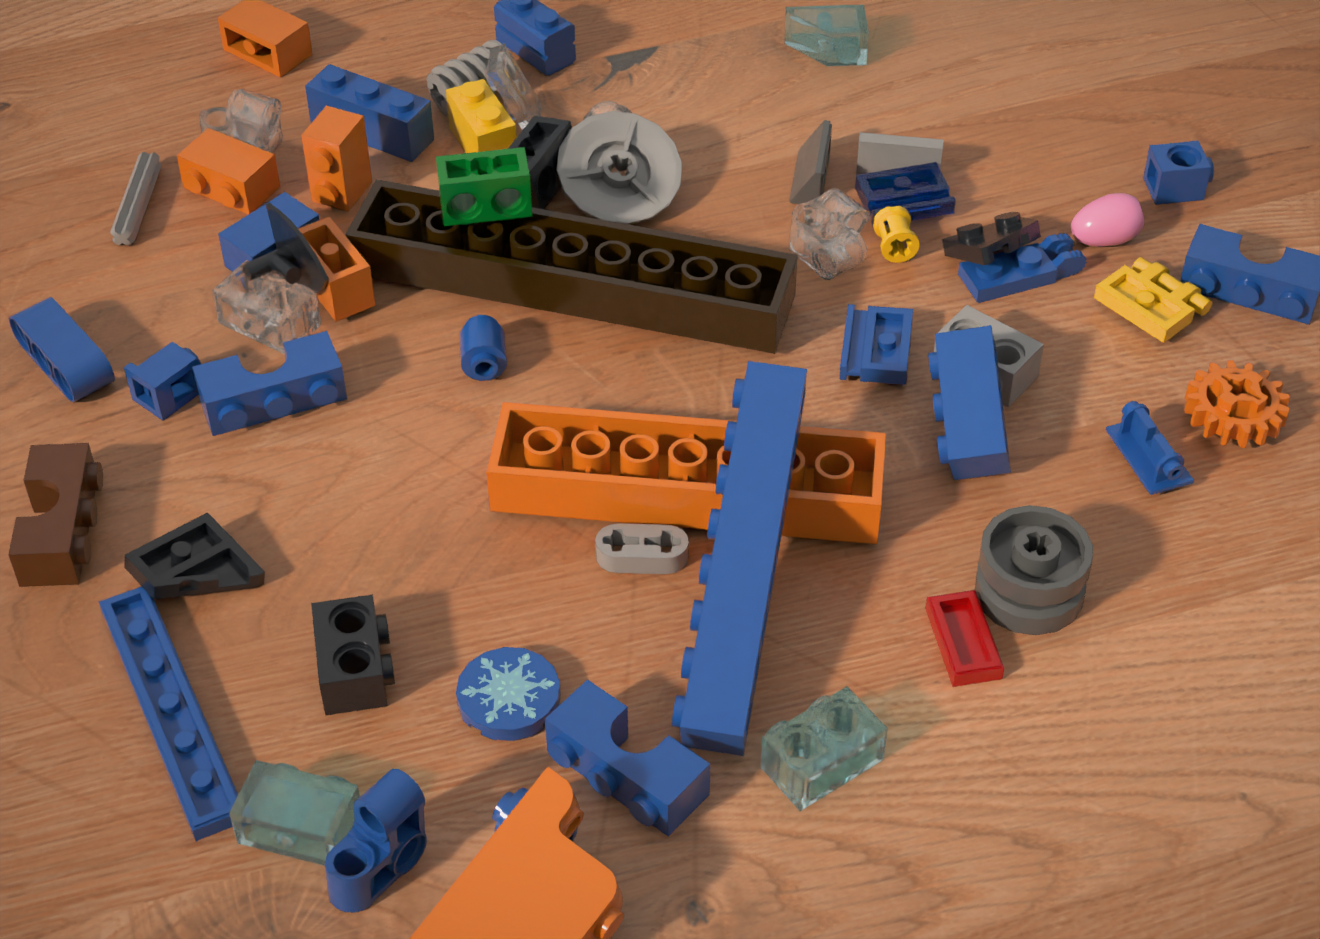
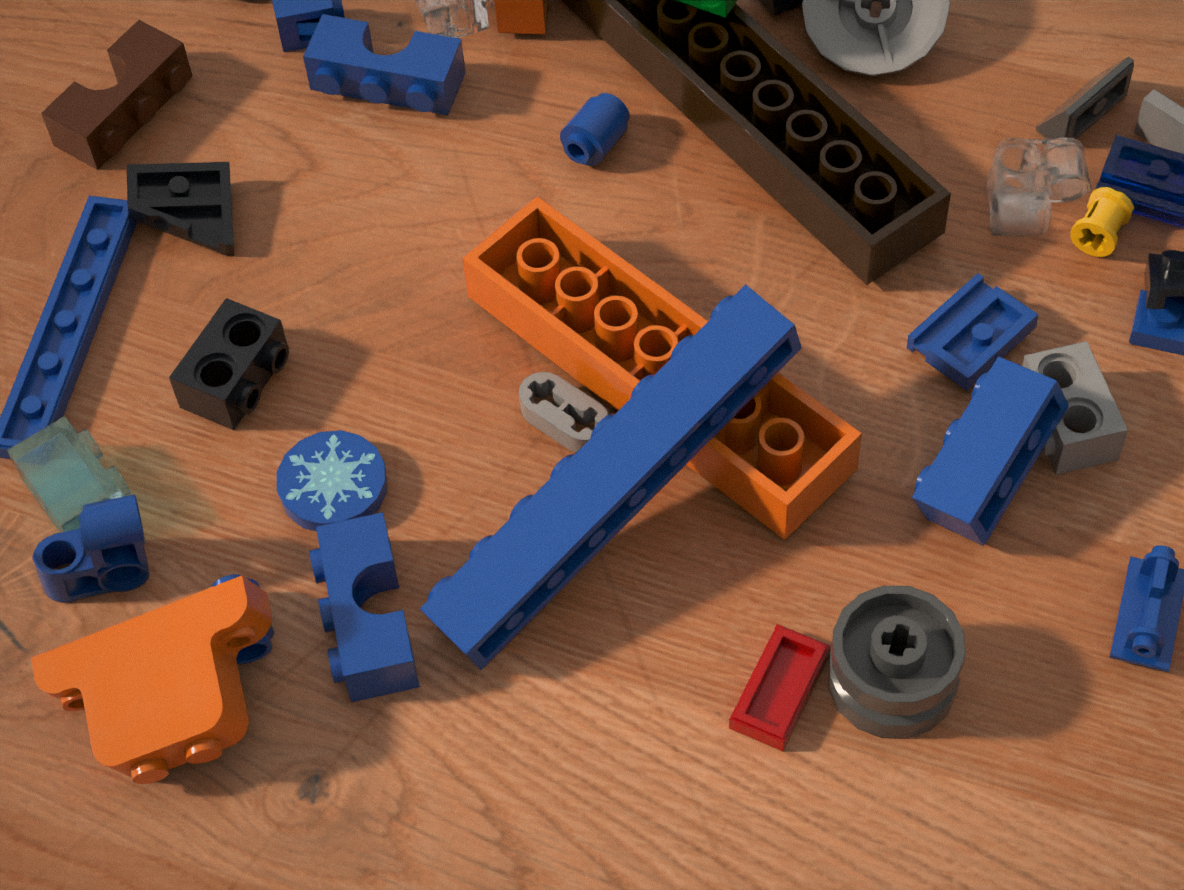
camera: 40 degrees right, 10 degrees up
(837, 743) = (539, 725): clear light blue brick -> none

